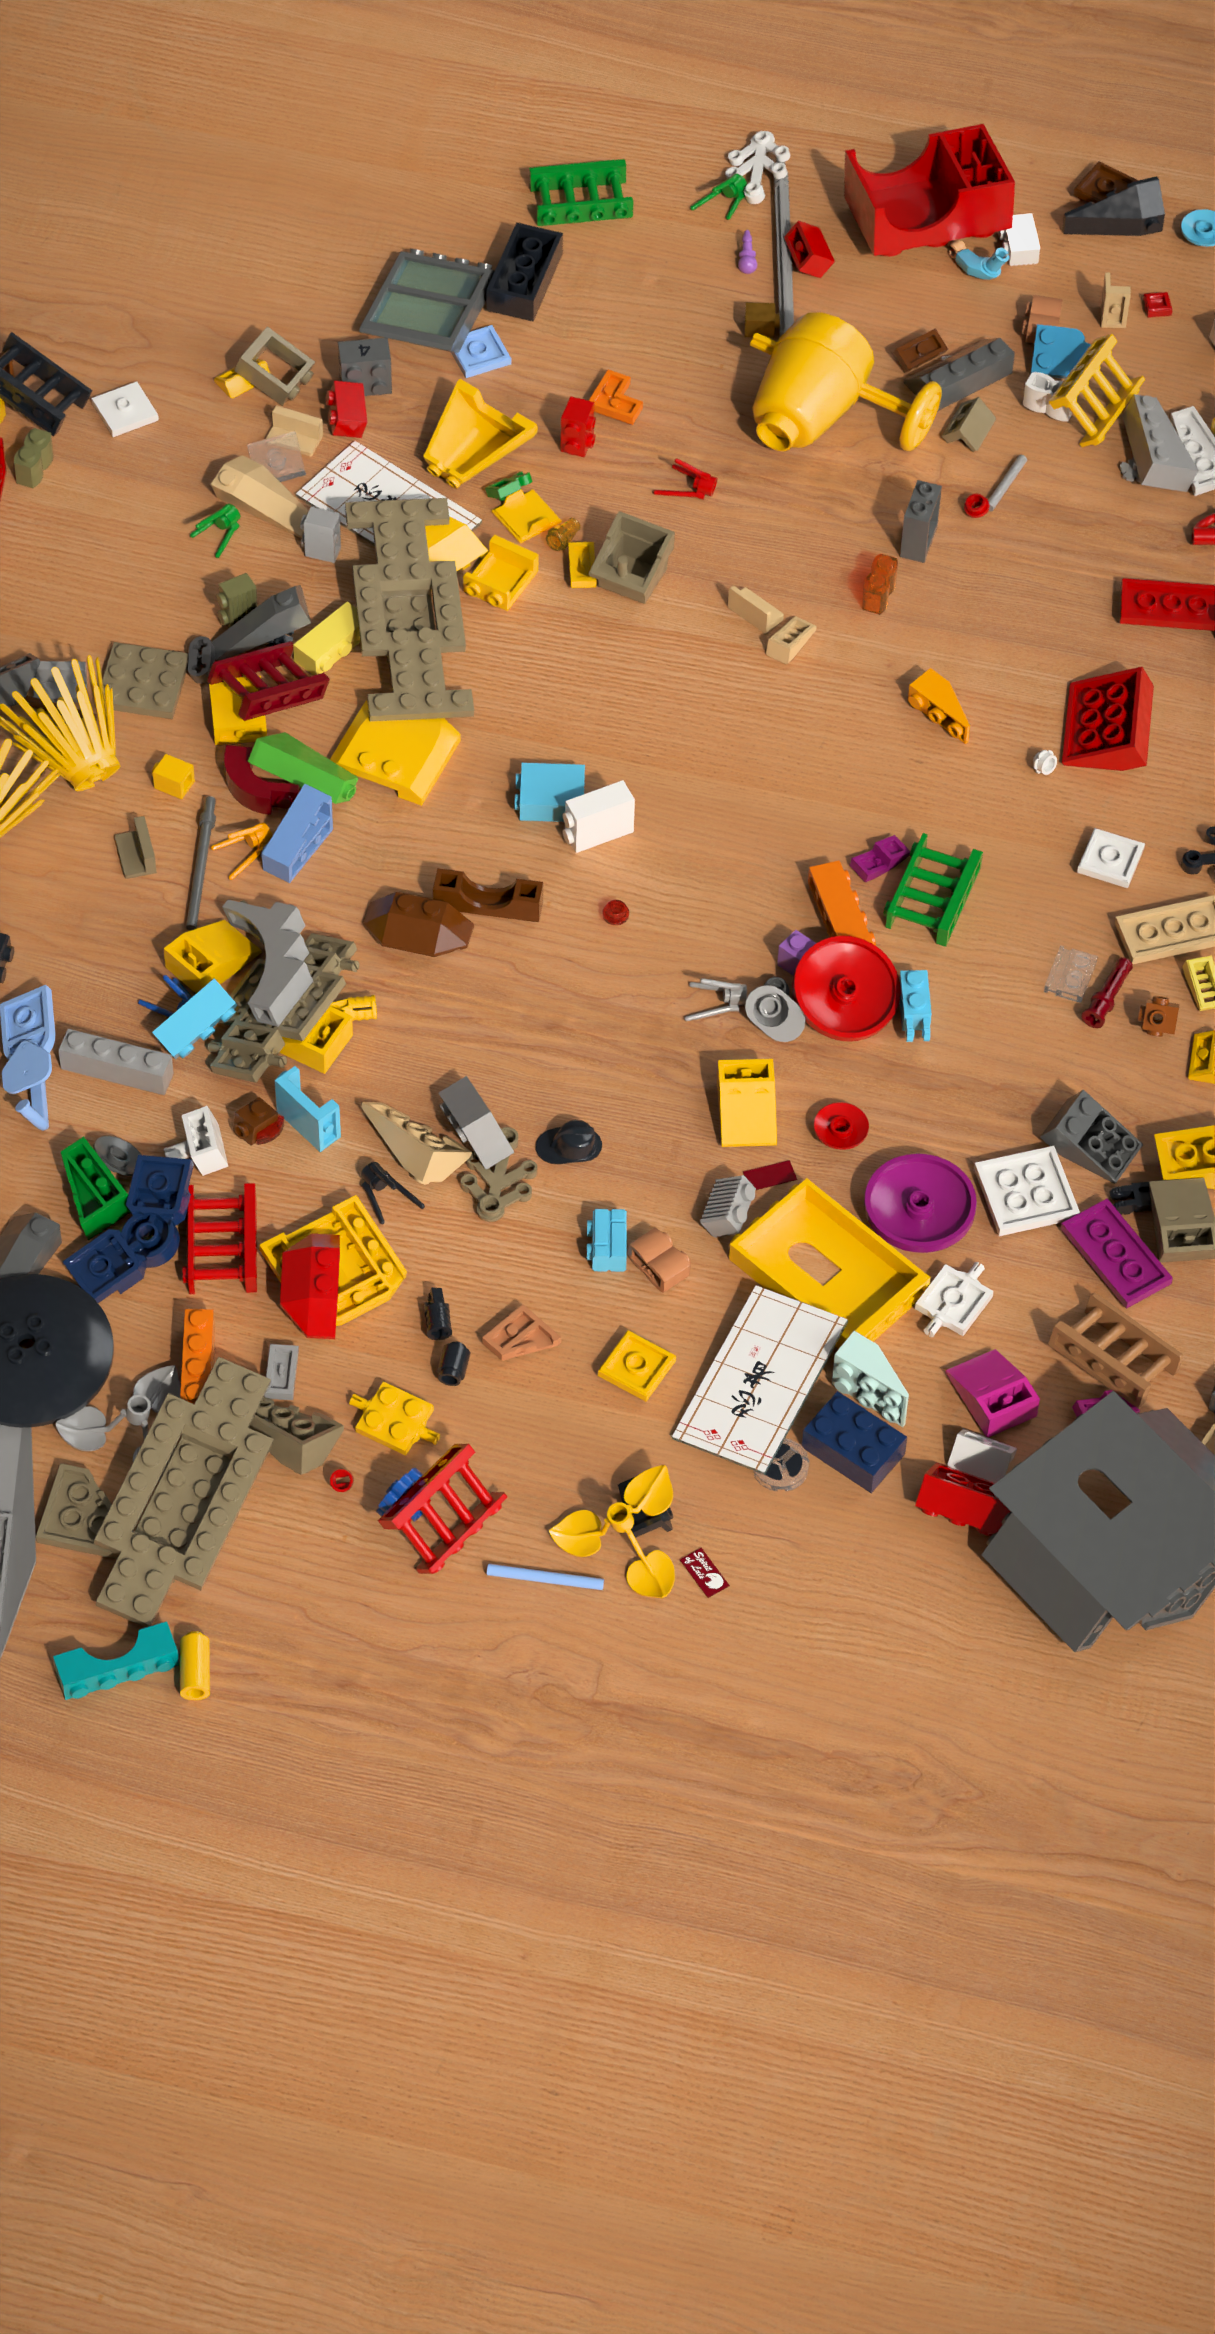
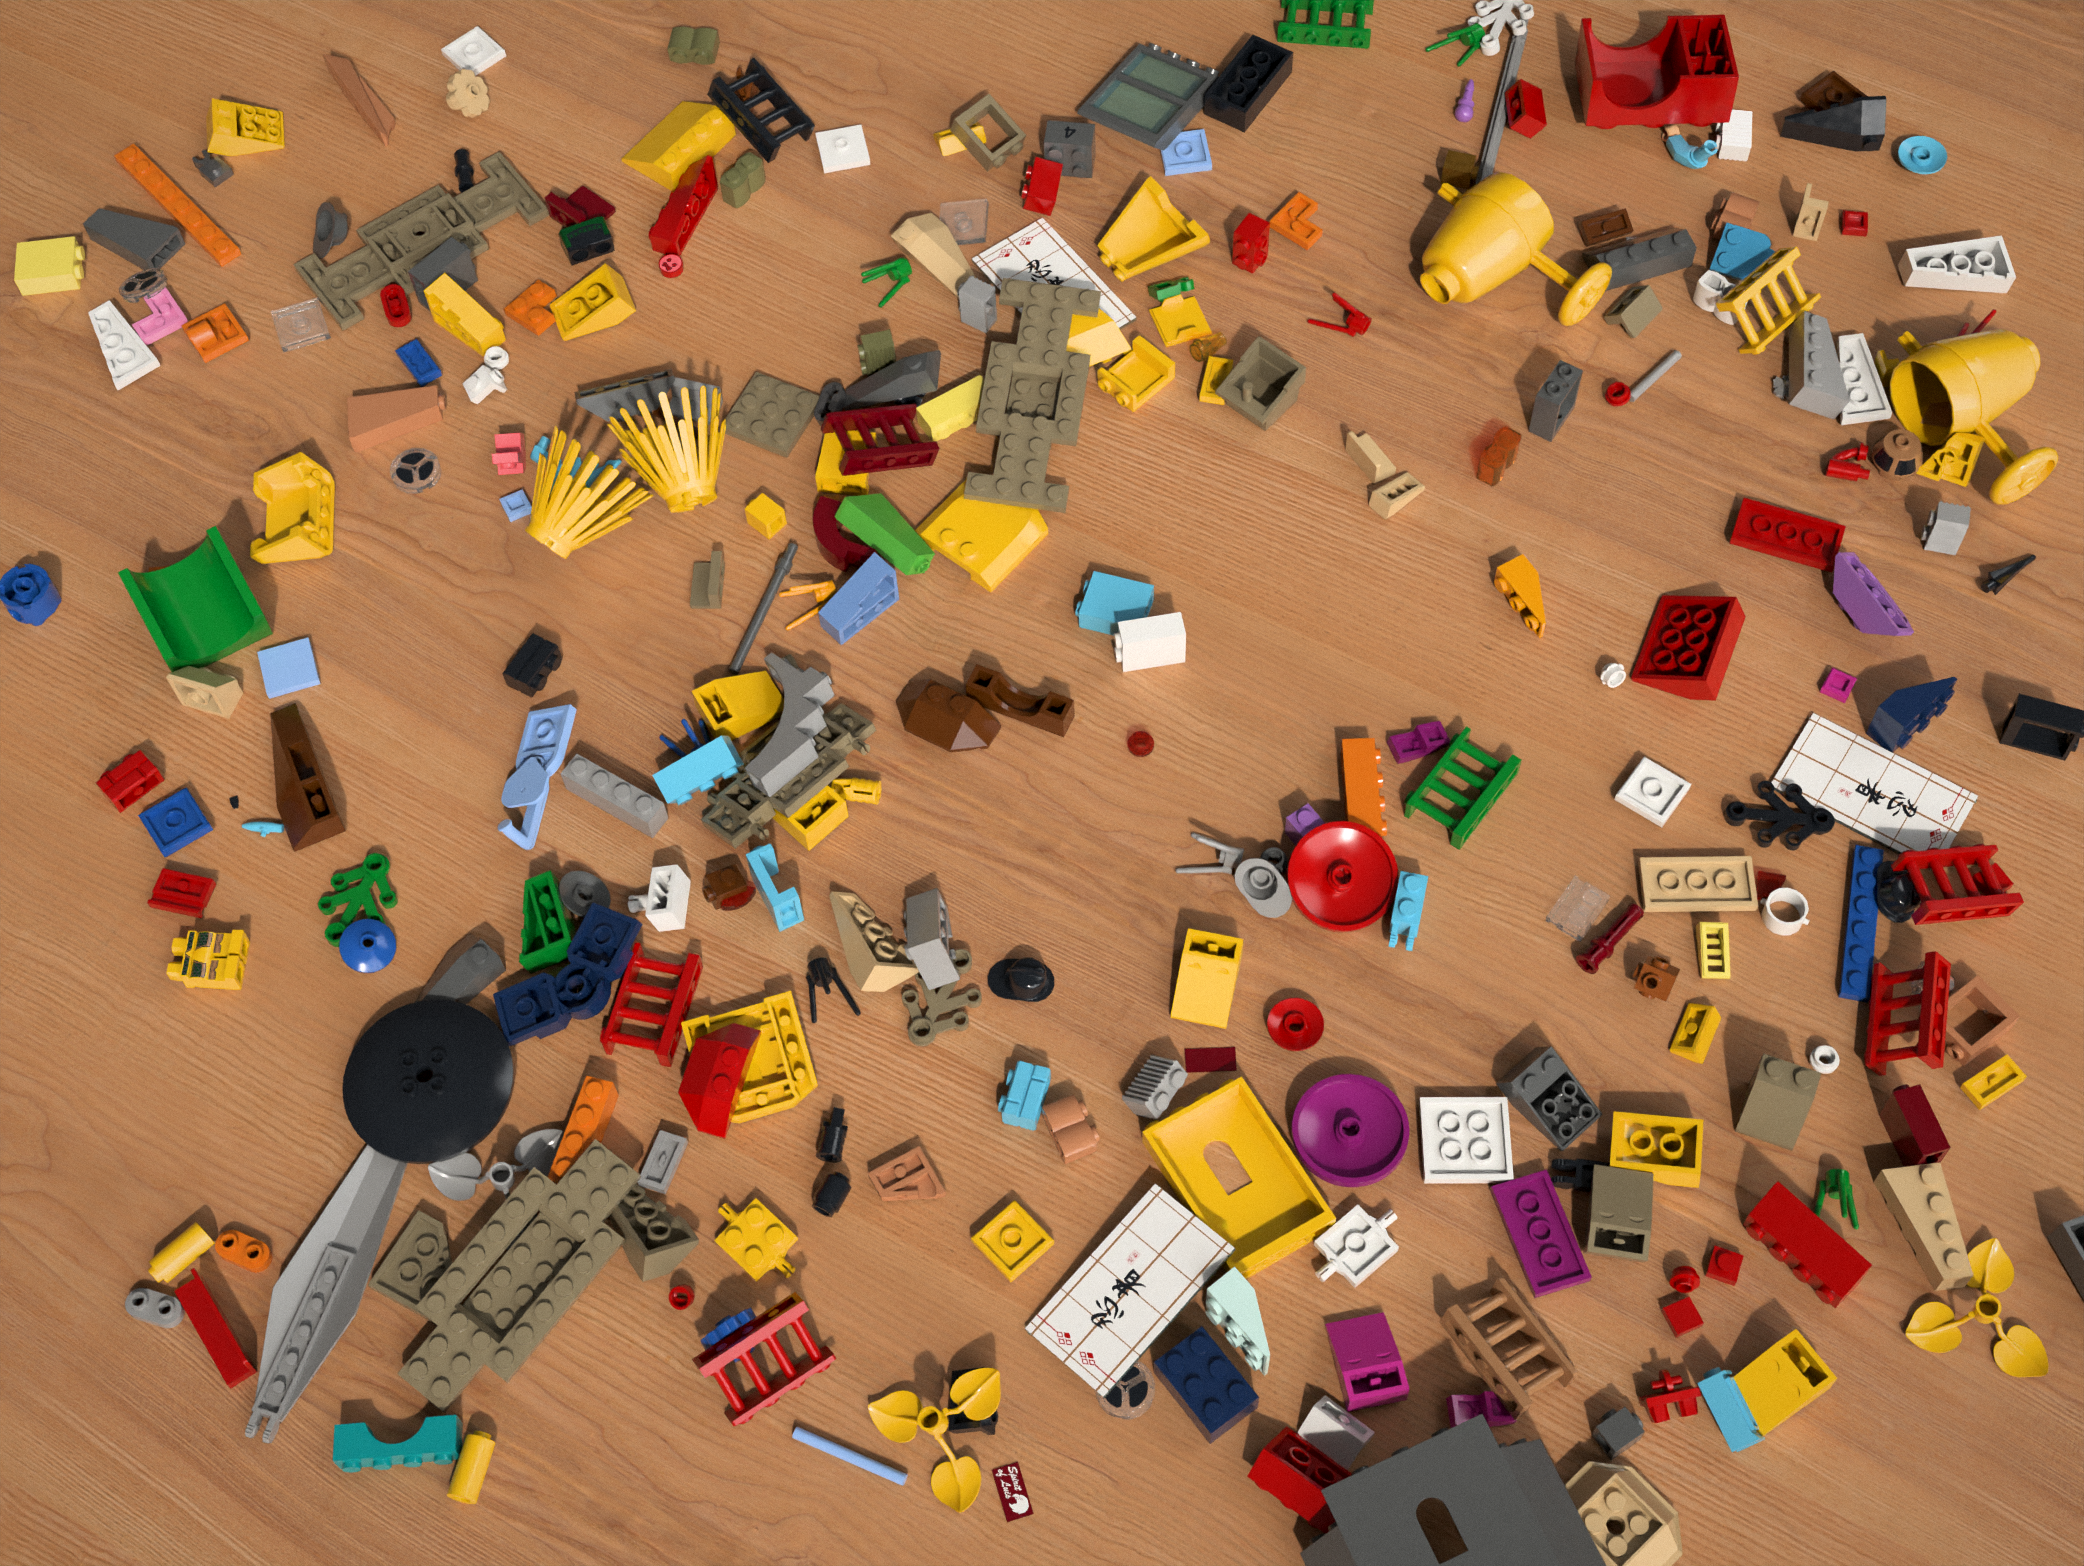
camera: 20 degrees right, 5 degrees up
(307, 427) = (1000, 198): tan panel -> none

